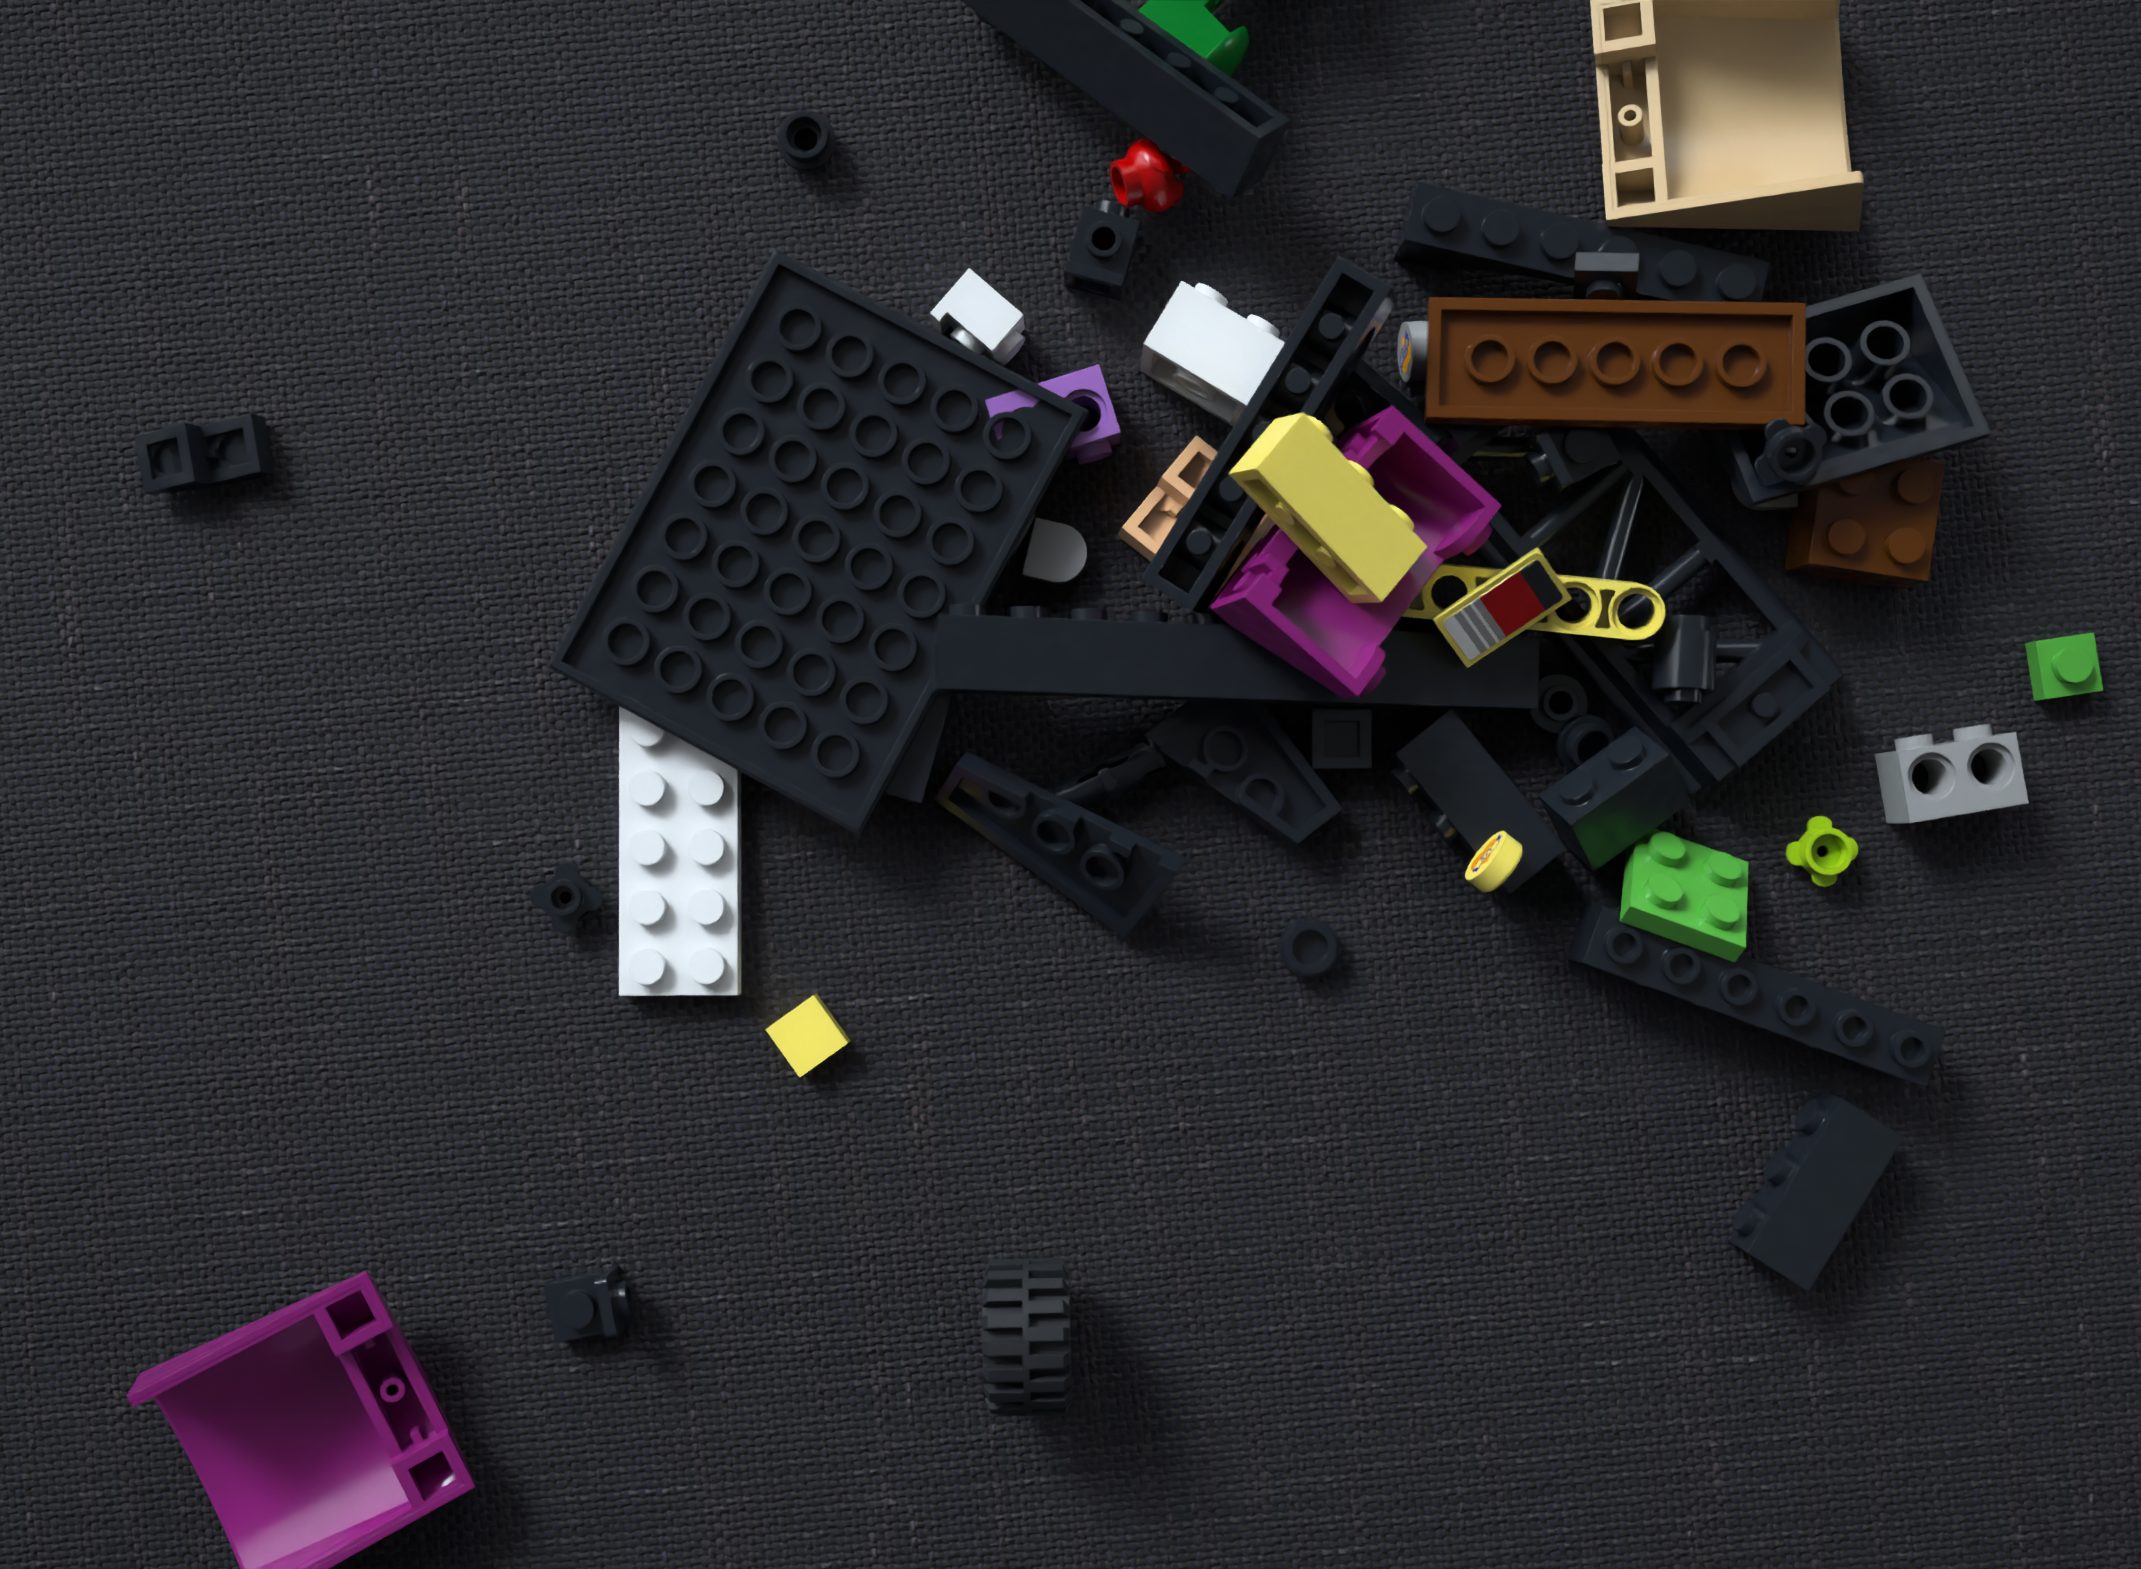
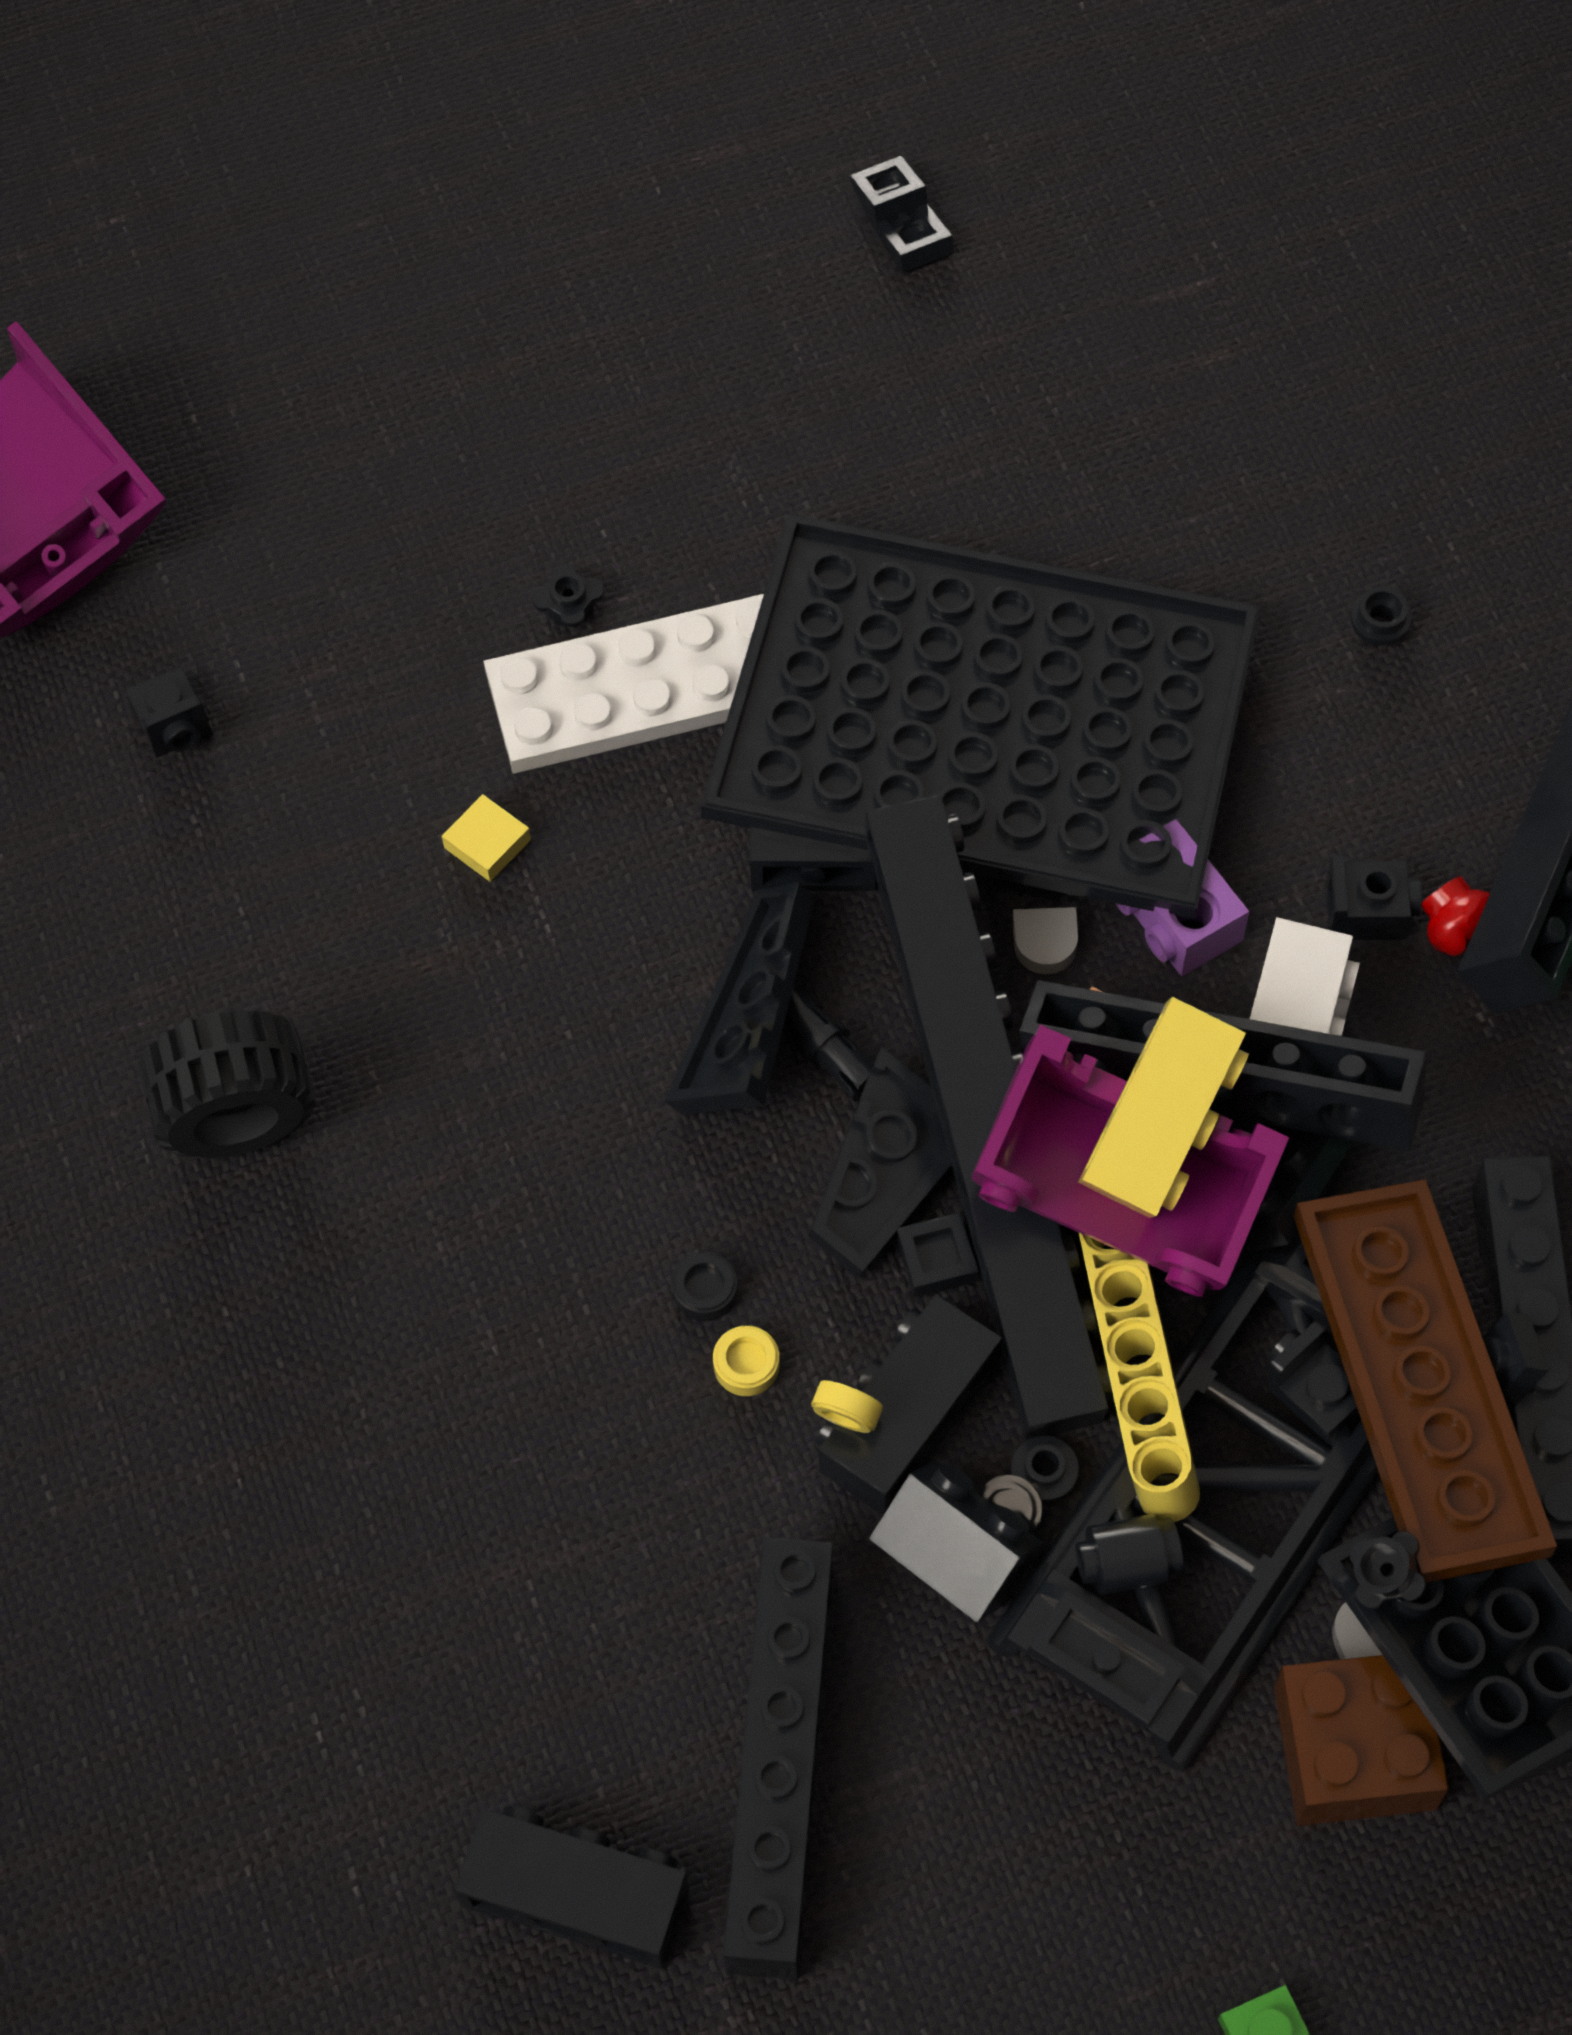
camera: 75 degrees right, 25 degrees down
(980, 319) = (1258, 804): white brick -> none
(1387, 928) = (746, 1360): none -> light yellow tile
(1502, 607) = (1122, 1326): slope -> none
(1686, 893) = (873, 1641): bright green plate -> none
(1839, 853) = (961, 1785): lime plate -> none
(1951, 784) = (1079, 1925): light grey brick -> none

